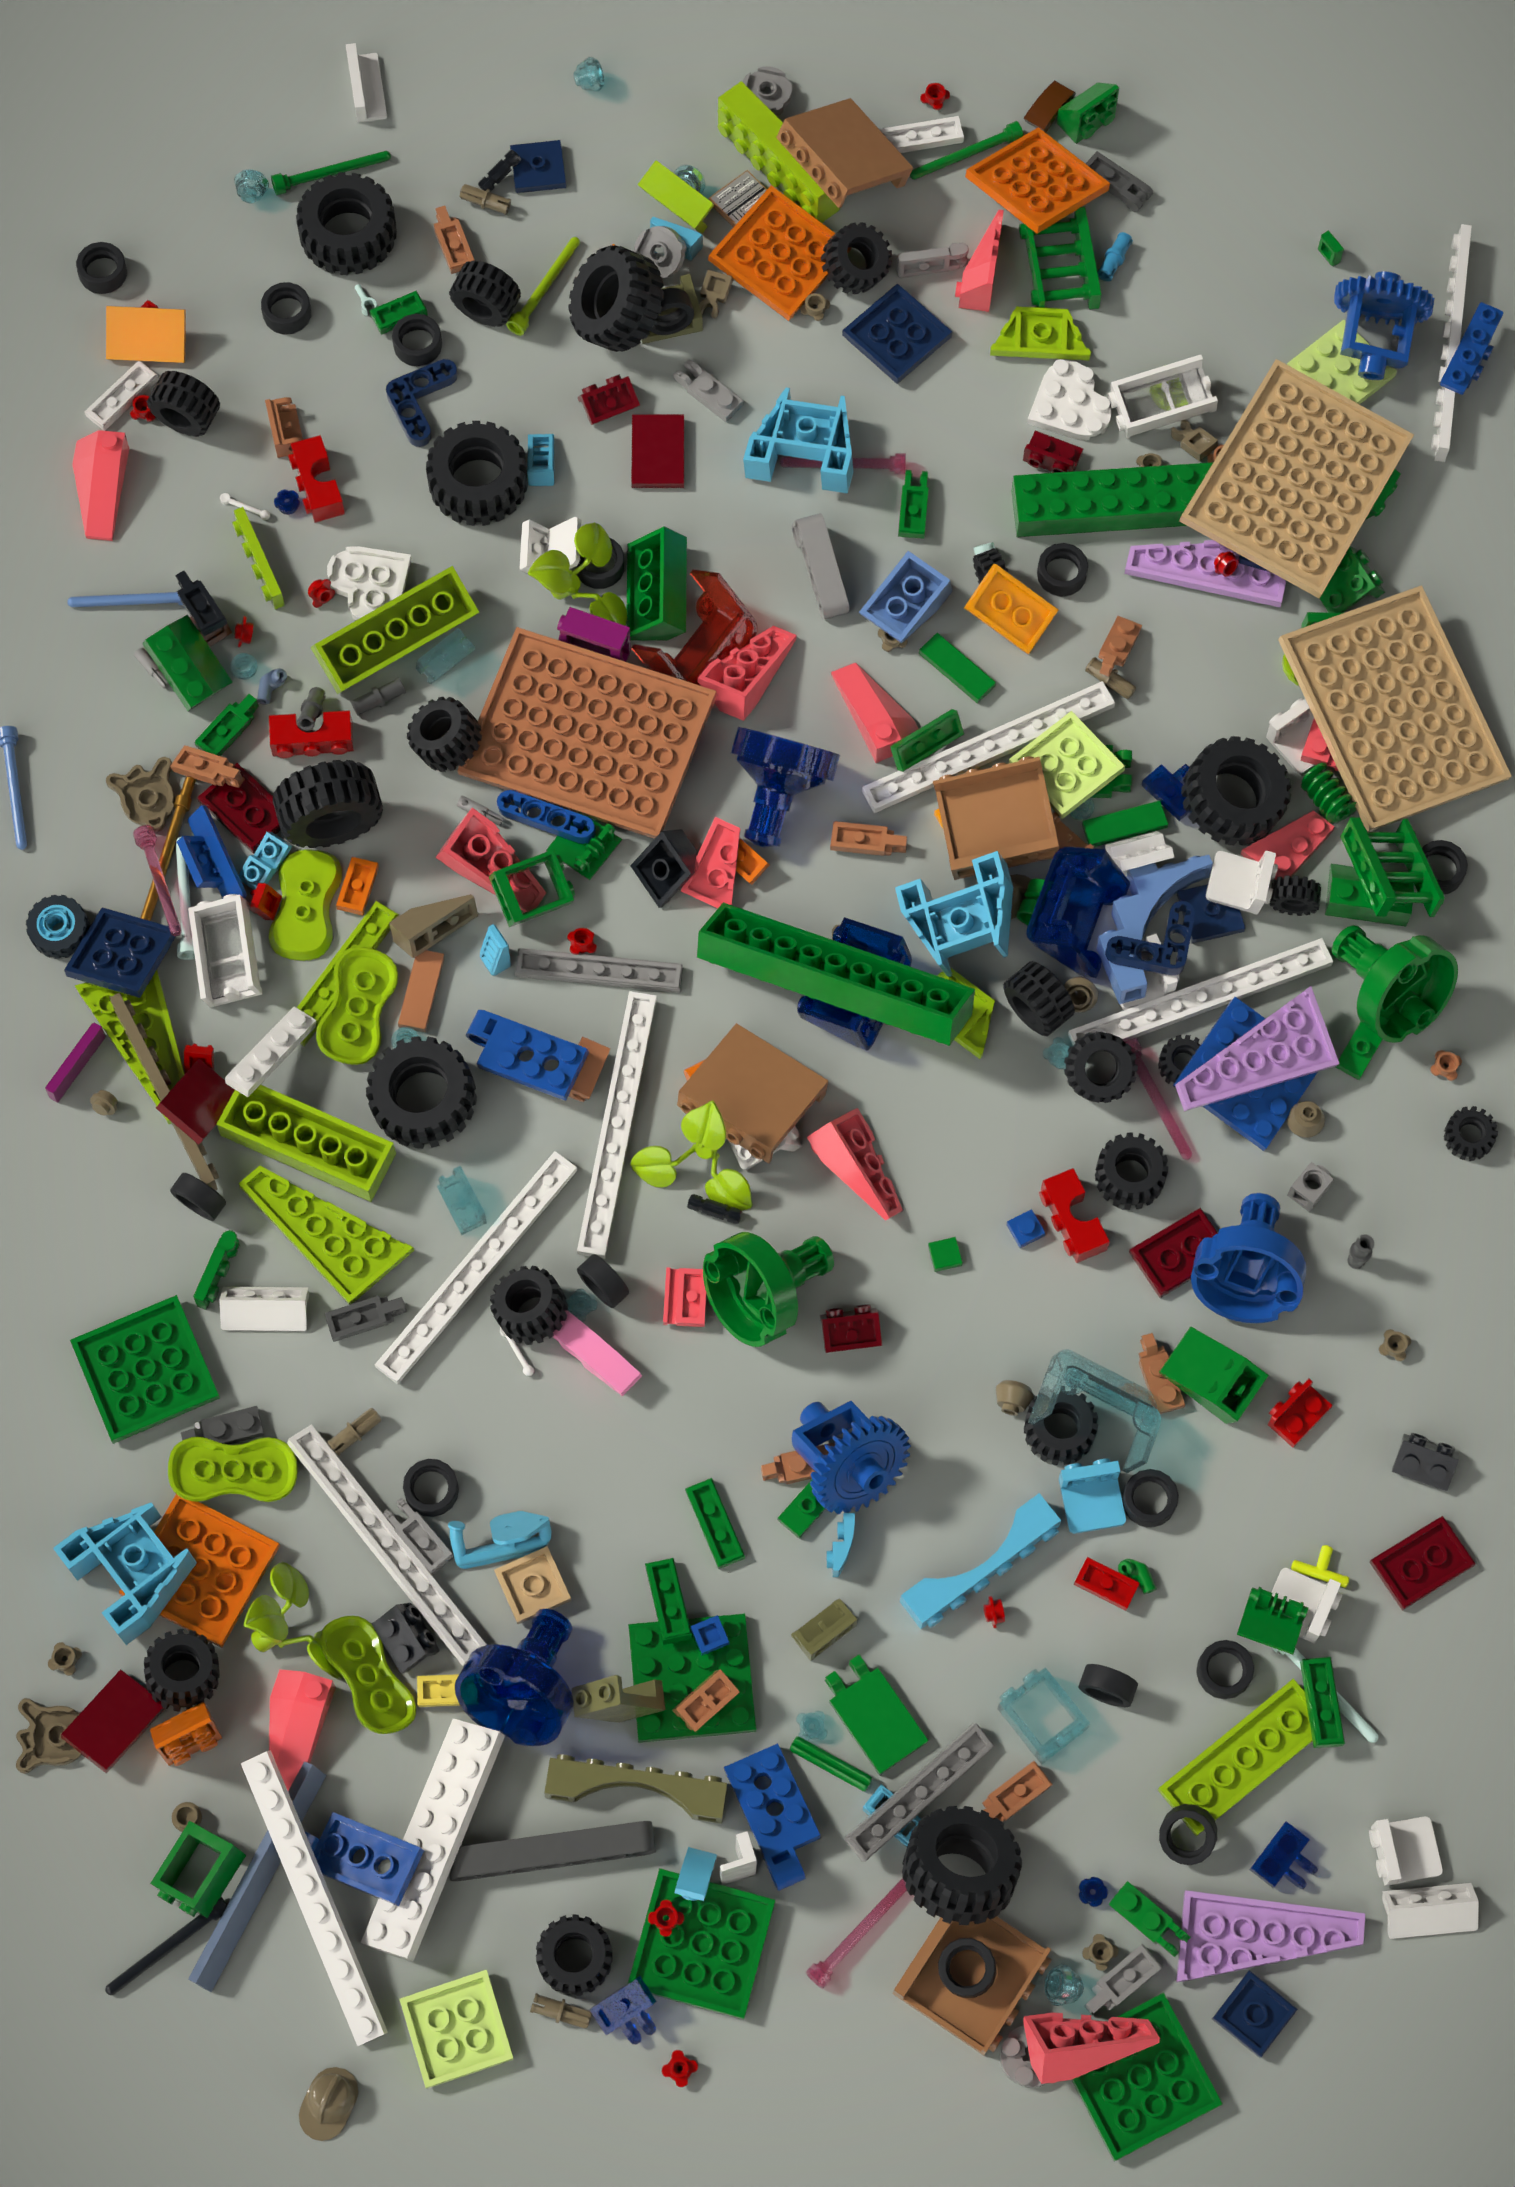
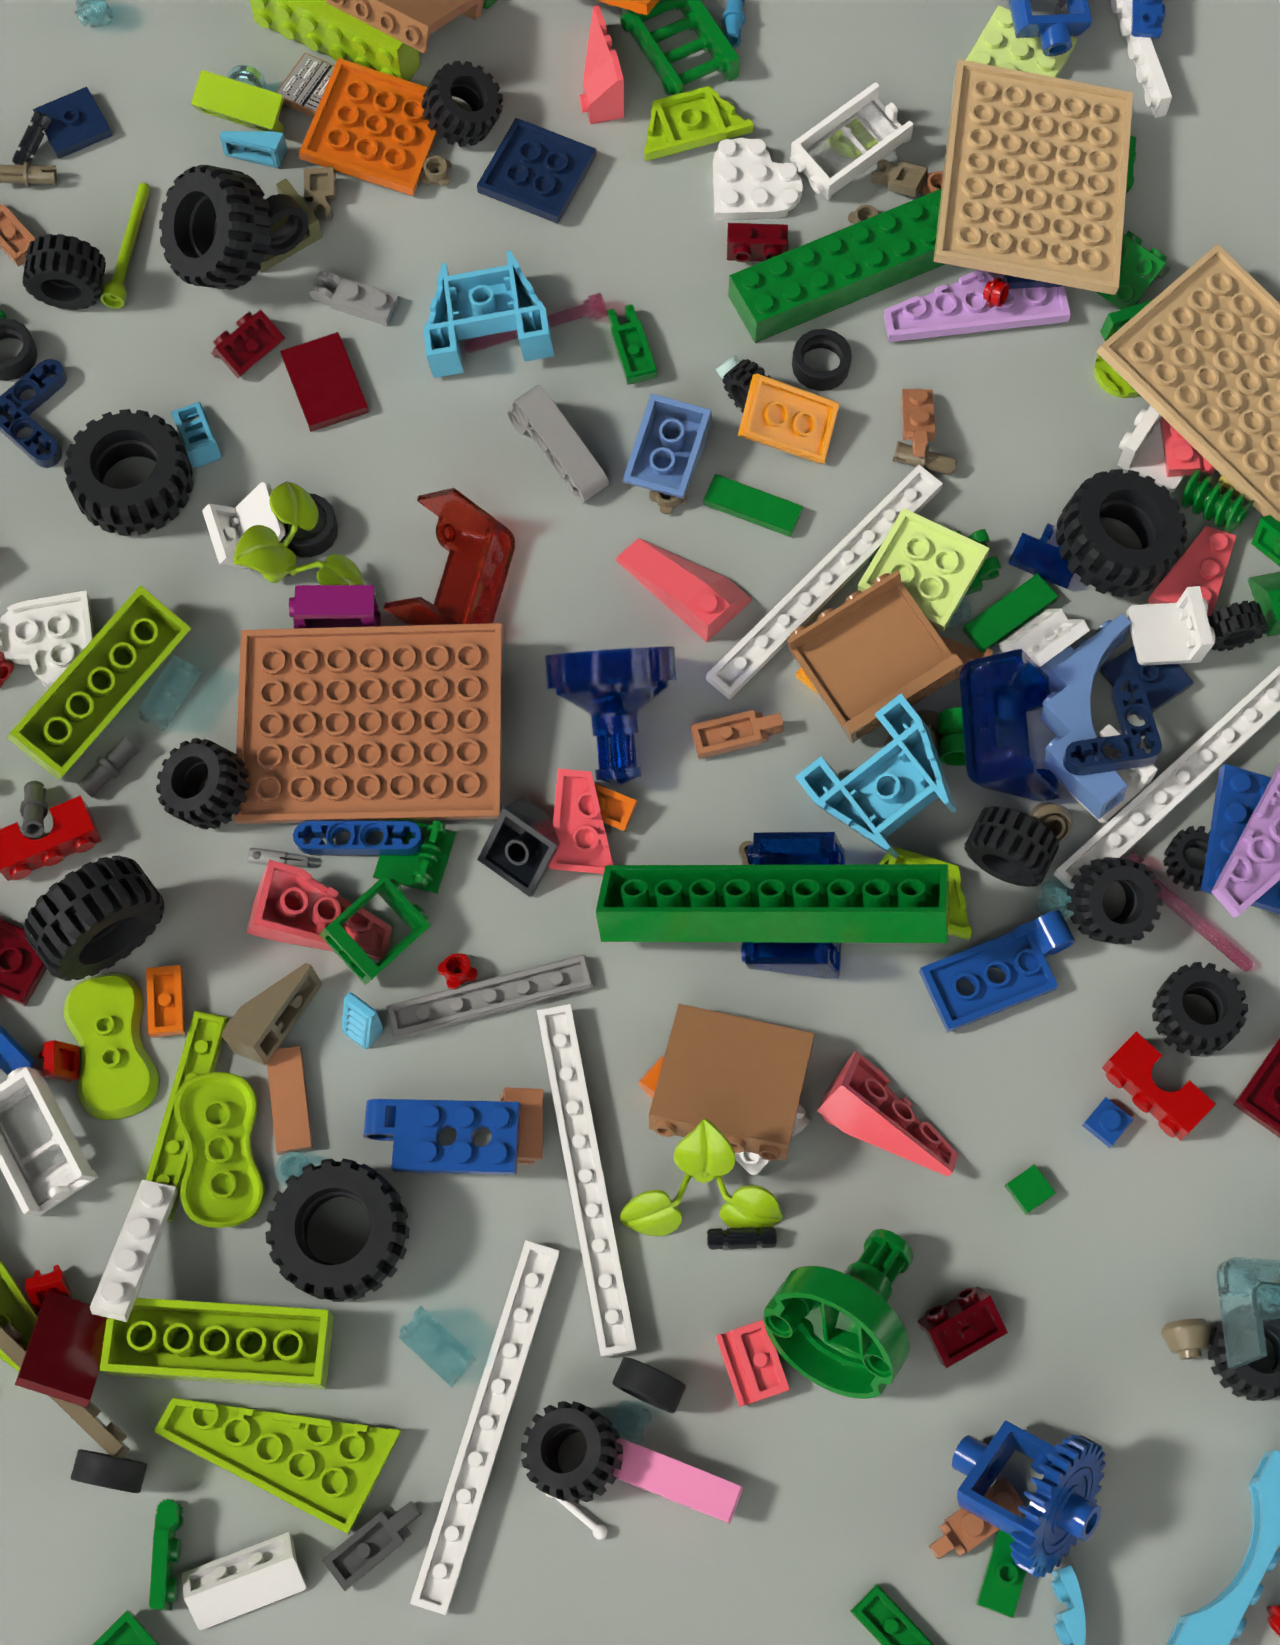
camera: 20 degrees left, 0 degrees up
(265, 861) = (44, 1011): medium azure slope -> none
(657, 586) = (382, 529): green slope -> none
(673, 247) = (253, 151): light grey plate -> none
(747, 671) = (523, 590): coral wedge -> none
(927, 740) = (756, 596): green tile -> none
(932, 260) = (542, 83): light grey hinge -> none
(1011, 1082) = (1017, 954): none -> blue hinge

